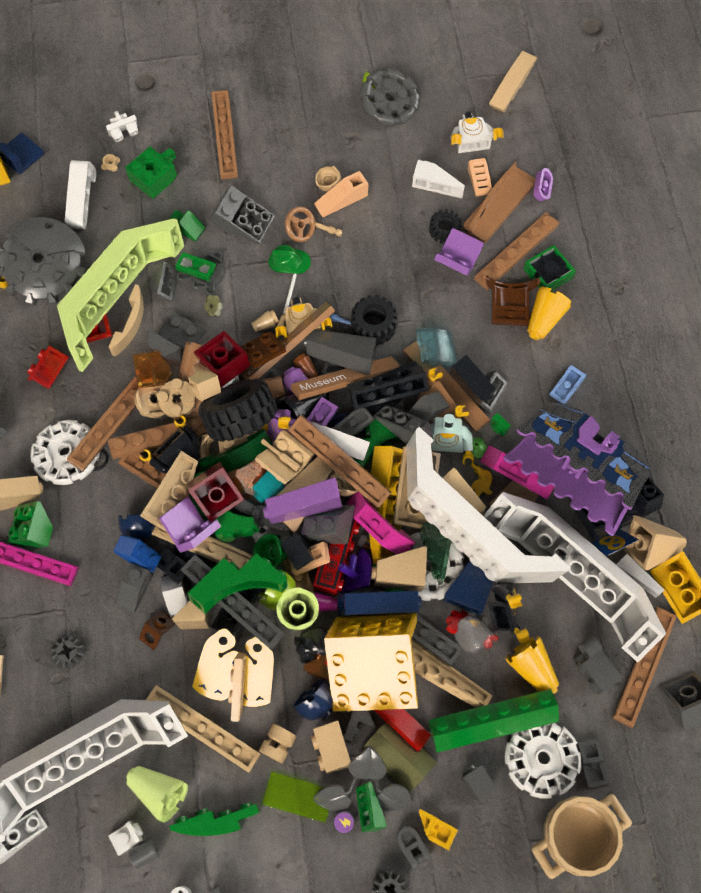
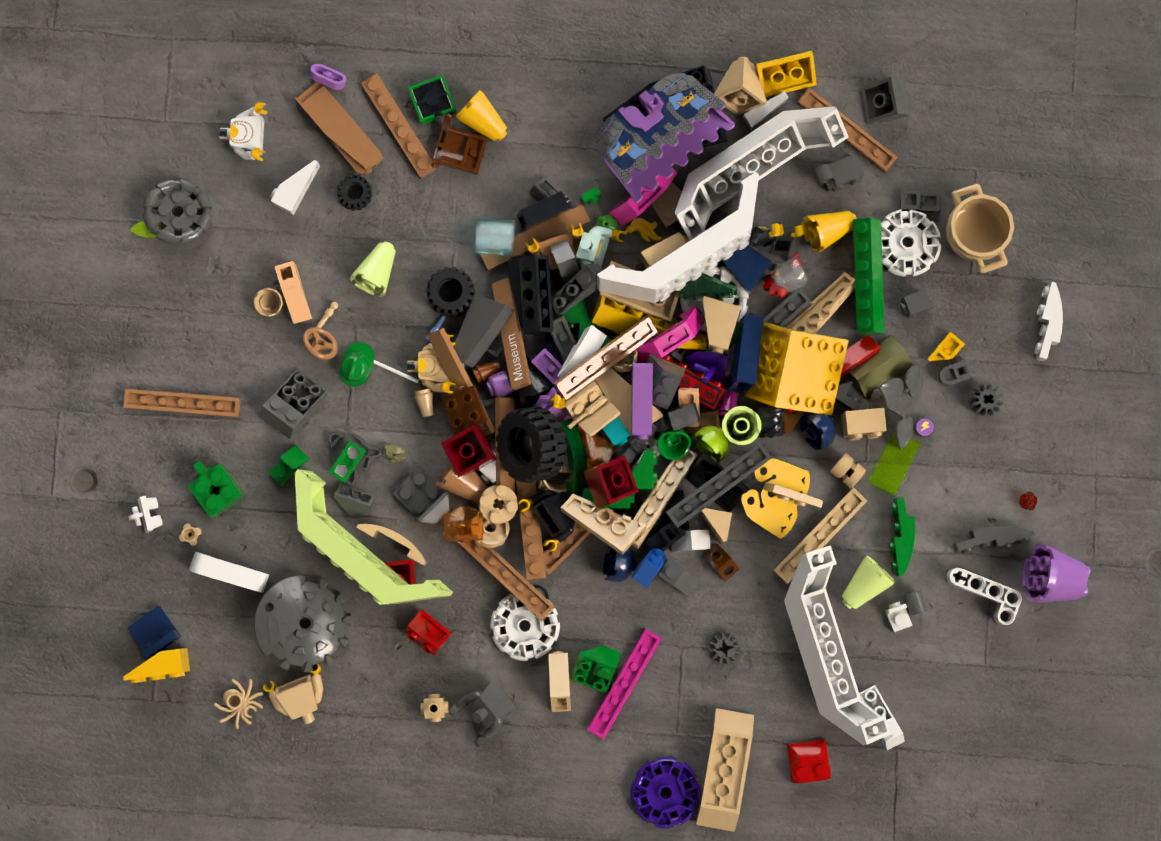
camera: 75 degrees left, 15 degrees up
(187, 526) = (642, 512): medium lavender bracket -> none
(203, 383) = (494, 472): tan arch -> none
(228, 579) = (700, 483): green arch -> none
(369, 809) = (919, 402): green slope -> none
(379, 254) = (375, 270): none -> yellowish green cone
(460, 252) = (393, 186): medium lavender bracket -> none
(479, 166) = (302, 147): light nougat slope -> none
(513, 81) = (186, 71): tan slope -> none
(567, 384) = (561, 118): light blue slope -> none
(611, 544) = (738, 131): blue sticker -> none

